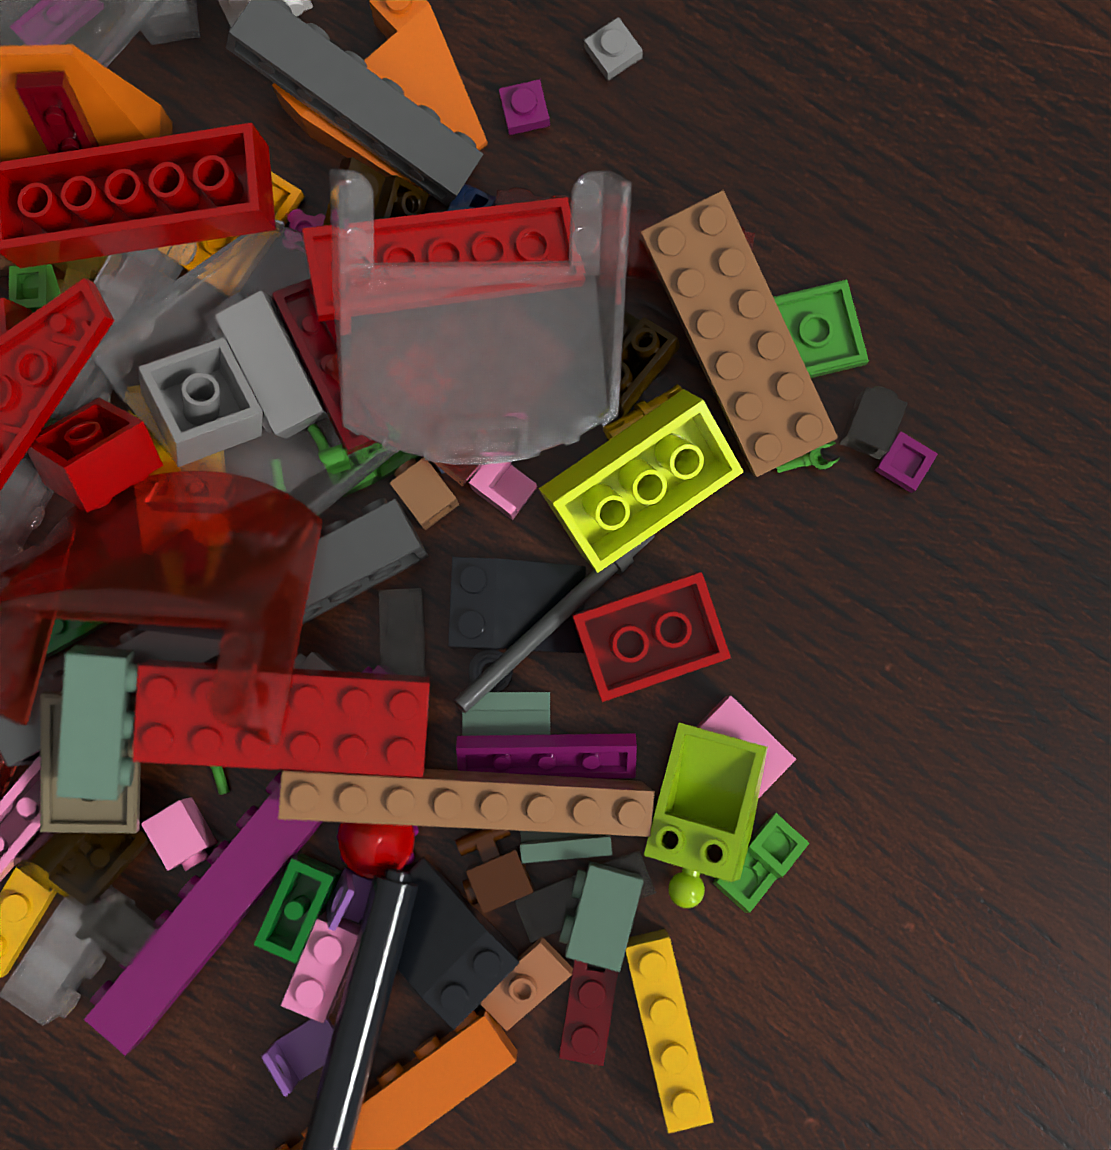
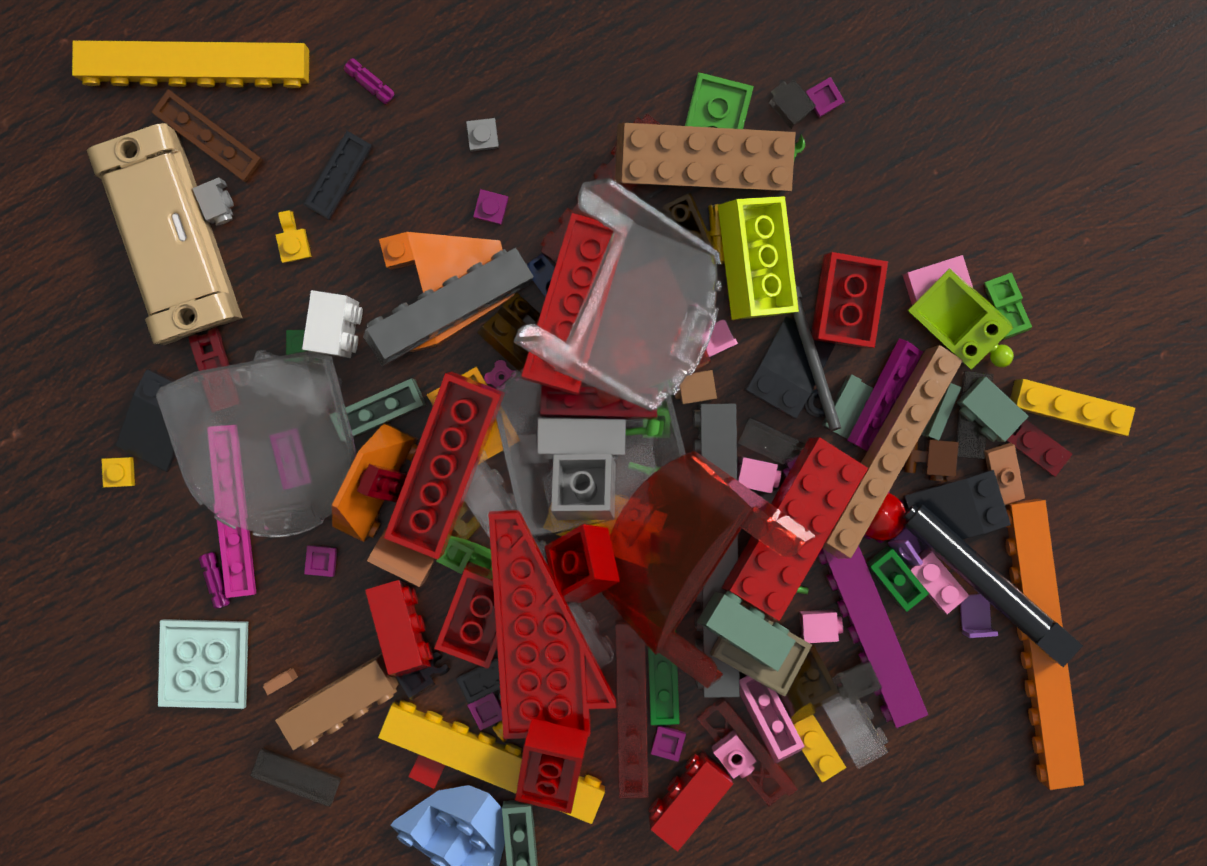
camera: 60 degrees left, 5 degrees up
(177, 88) = (384, 407): none -> sand green brick
(342, 632) = (758, 474): none -> bright pink brick

